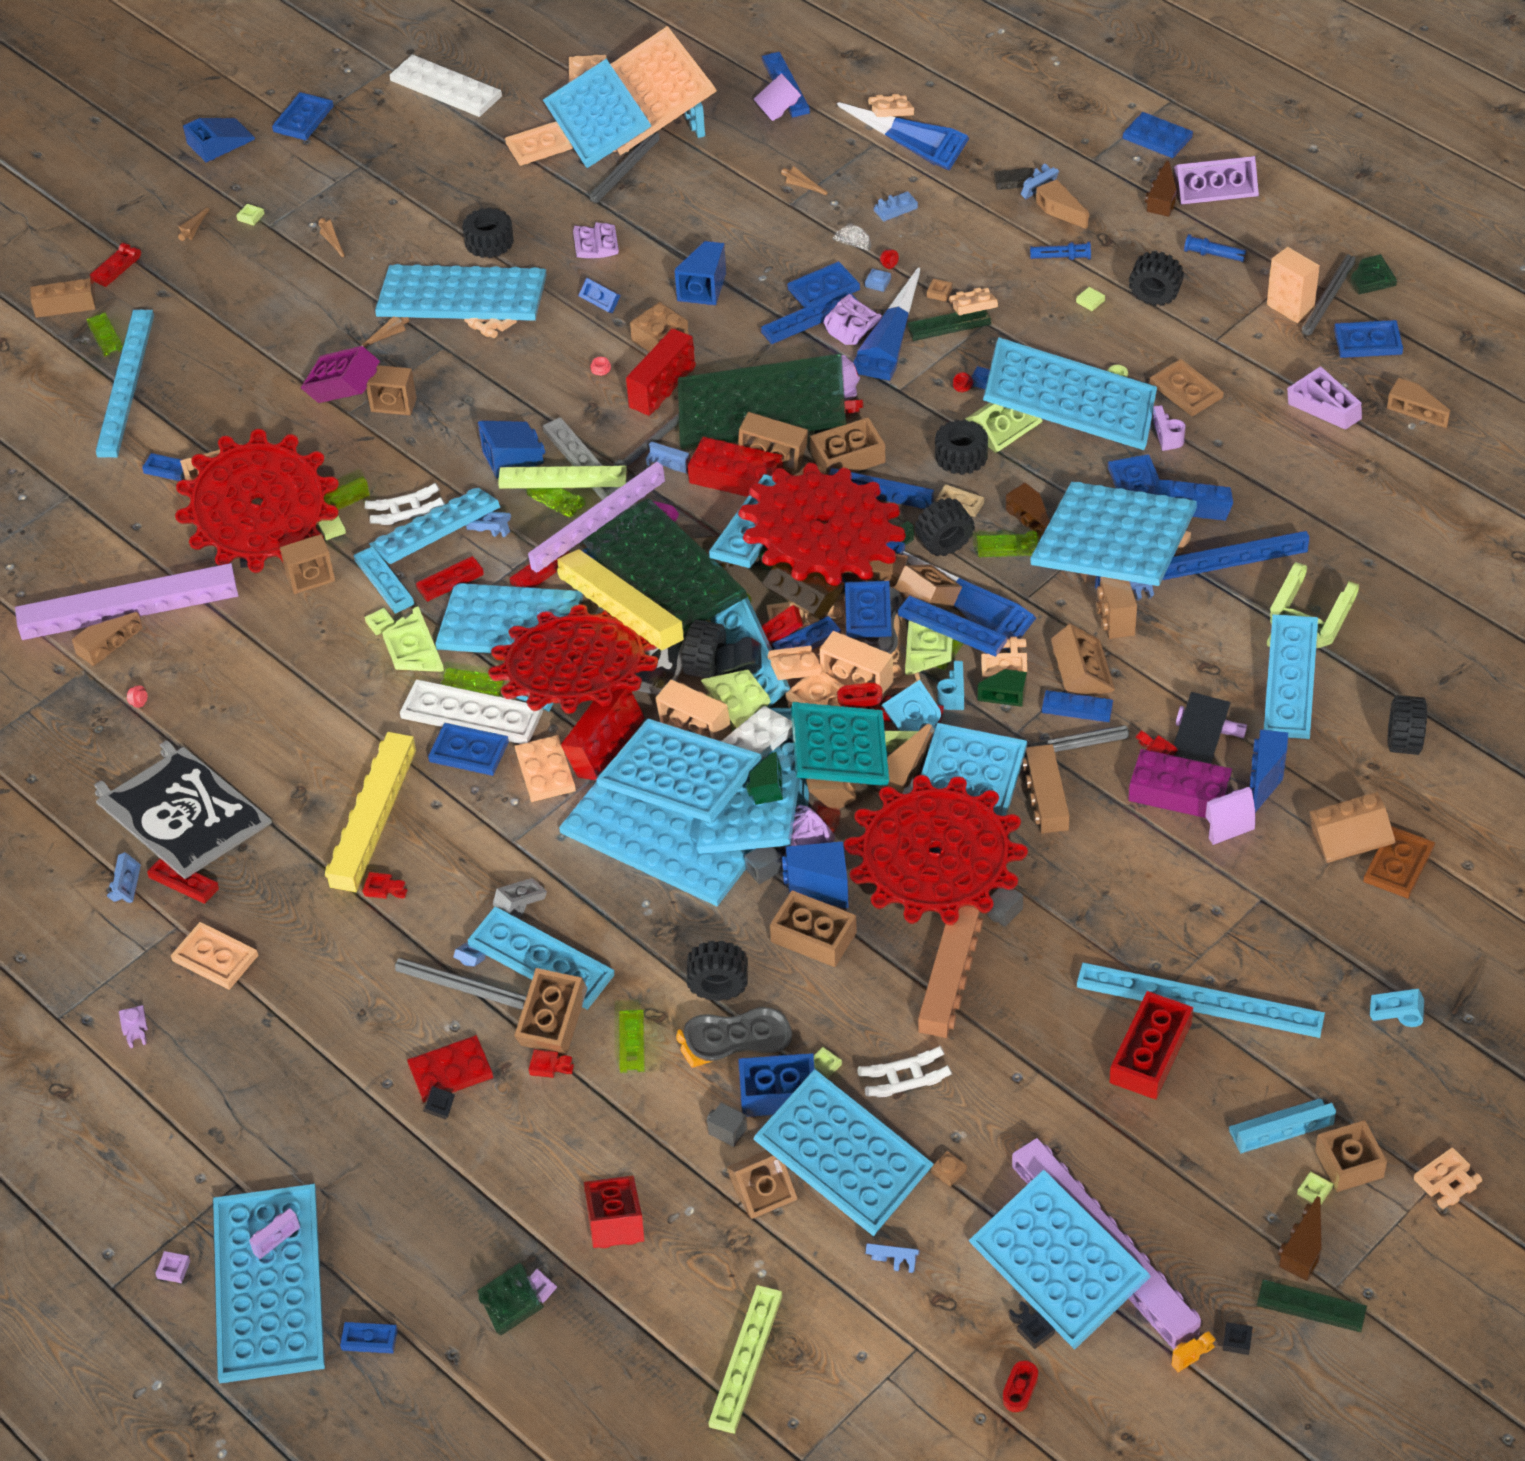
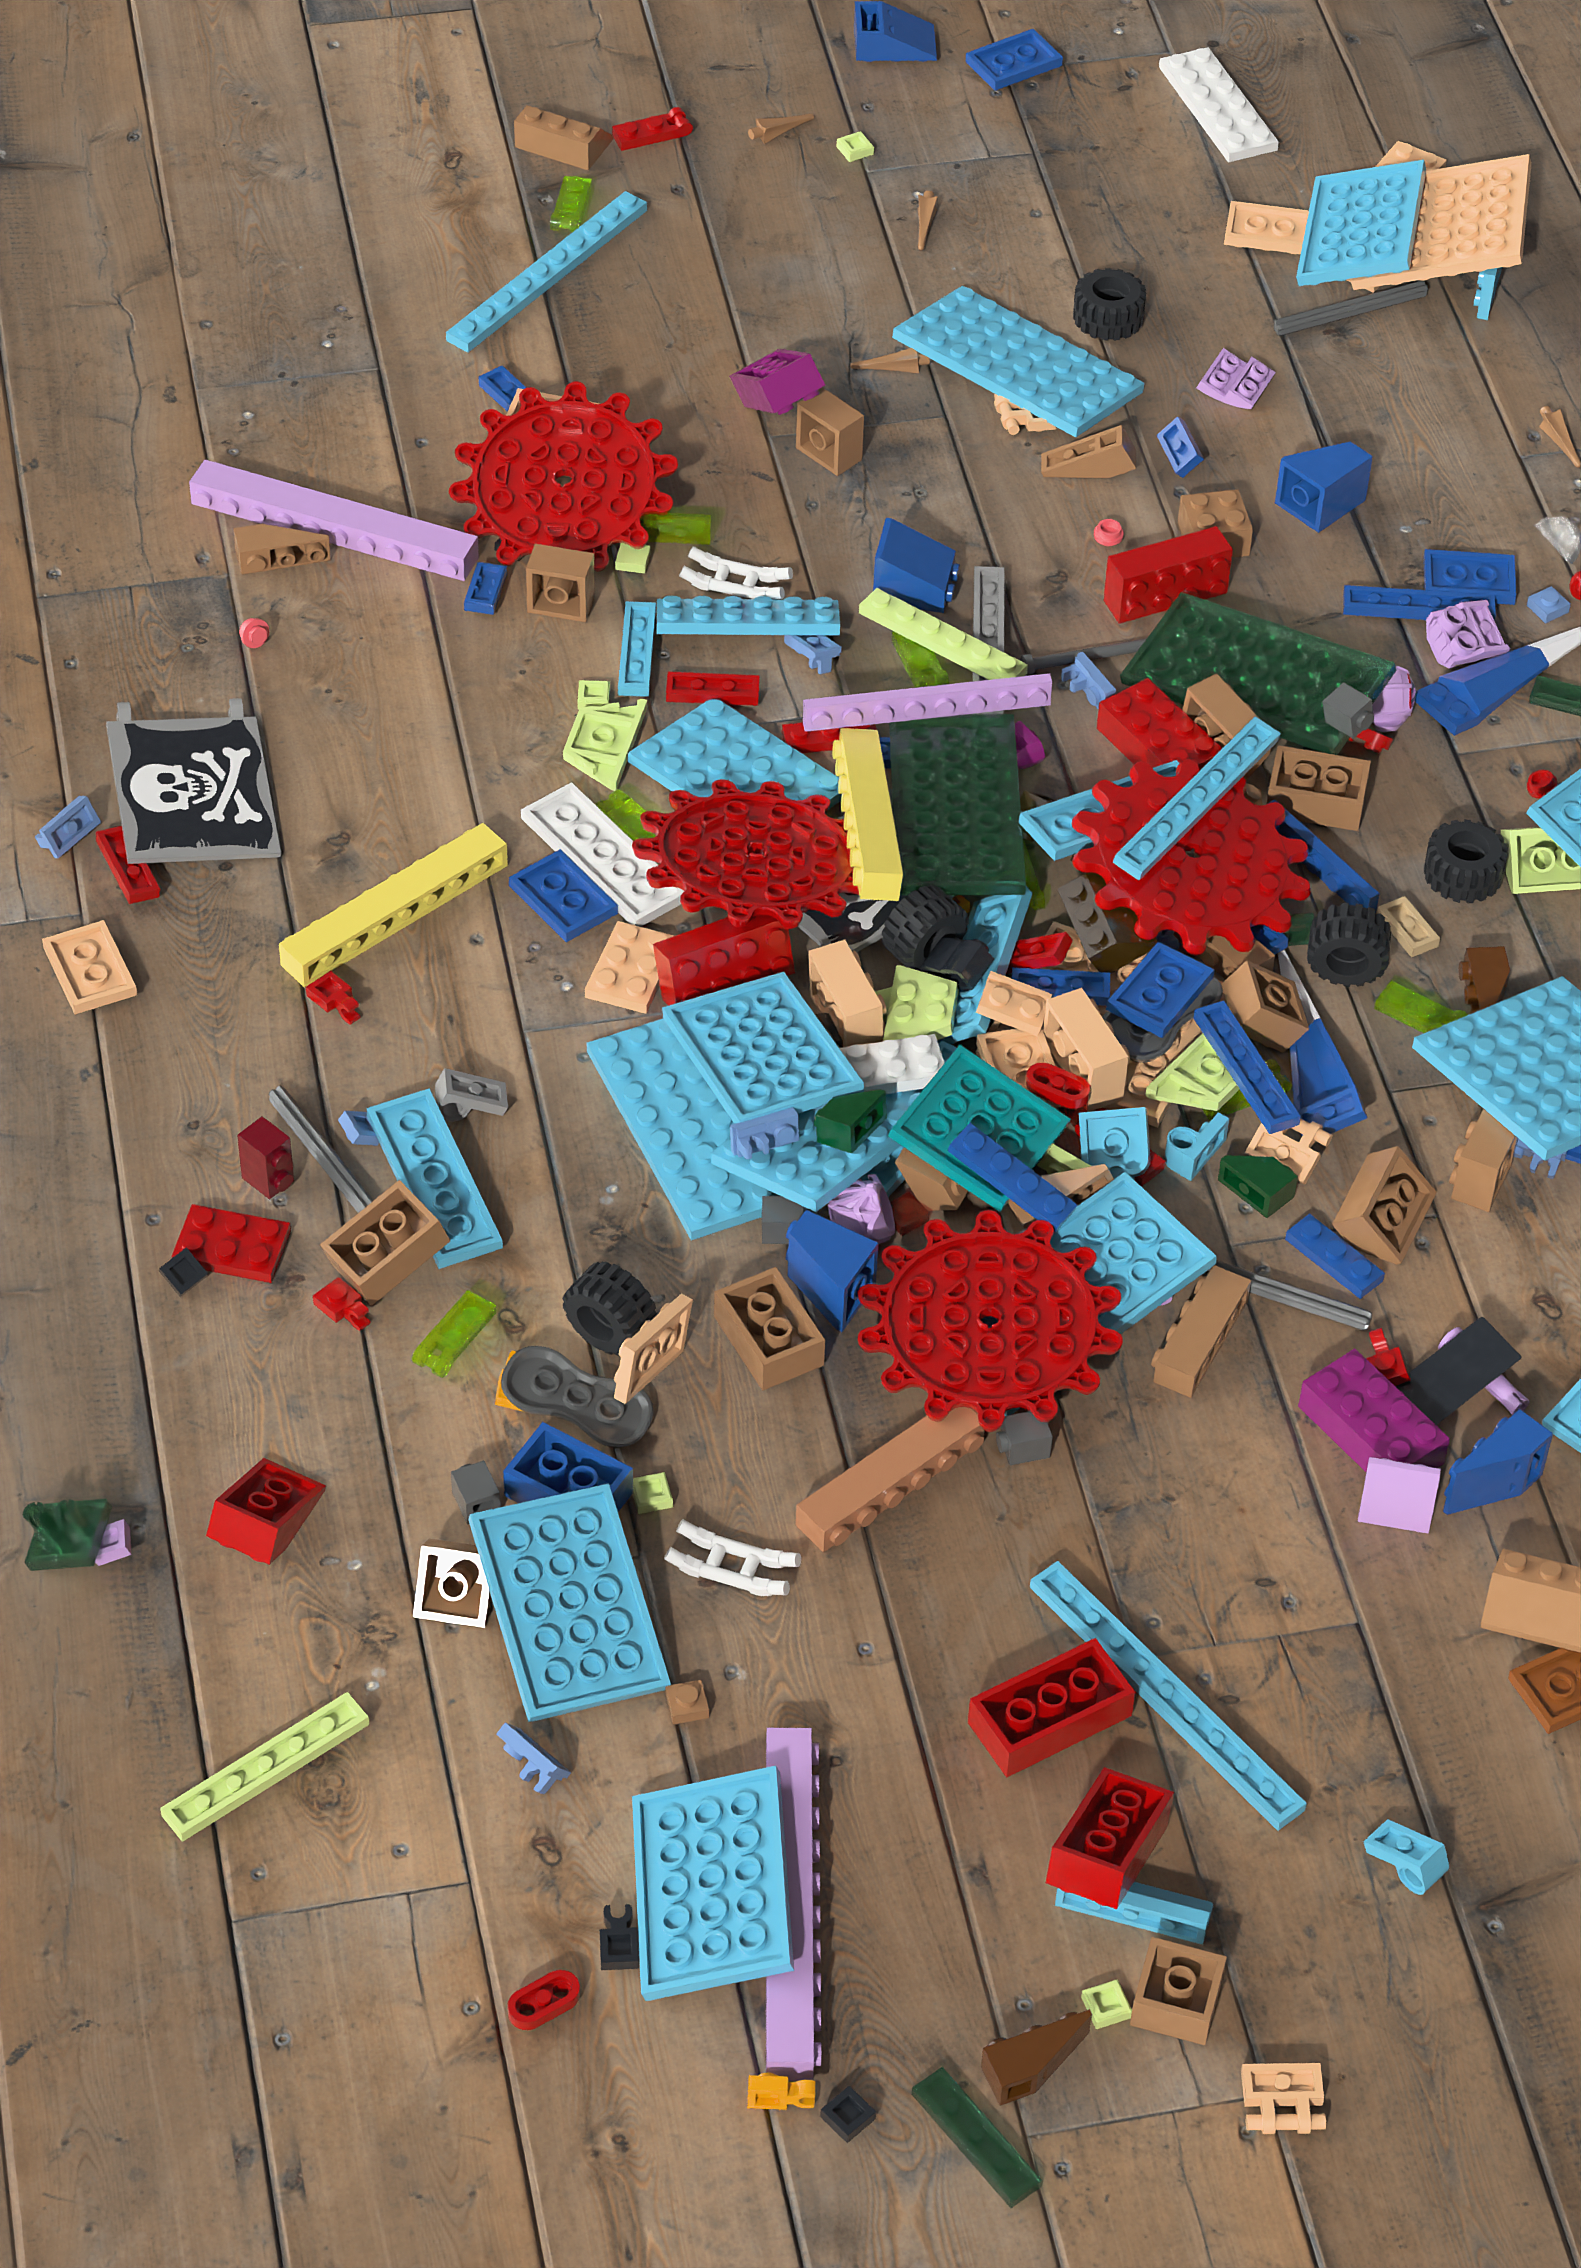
camera: 30 degrees right, 0 degrees up
(258, 592) = (485, 588): none -> blue plate
(434, 1004) = (265, 1157): none -> dark red brick
(555, 326) = (1092, 457): none -> medium nougat slope
(725, 816) = (764, 1133): none -> medium blue plate
(761, 978) = (652, 1348): none -> light nougat plate
(804, 488) = (1196, 798): none -> medium azure plate
(840, 394) = (1348, 710): none -> dark grey brick
(882, 761) = (1011, 1177): none -> blue plate
(1250, 1095) = (1109, 1838): none -> red brick

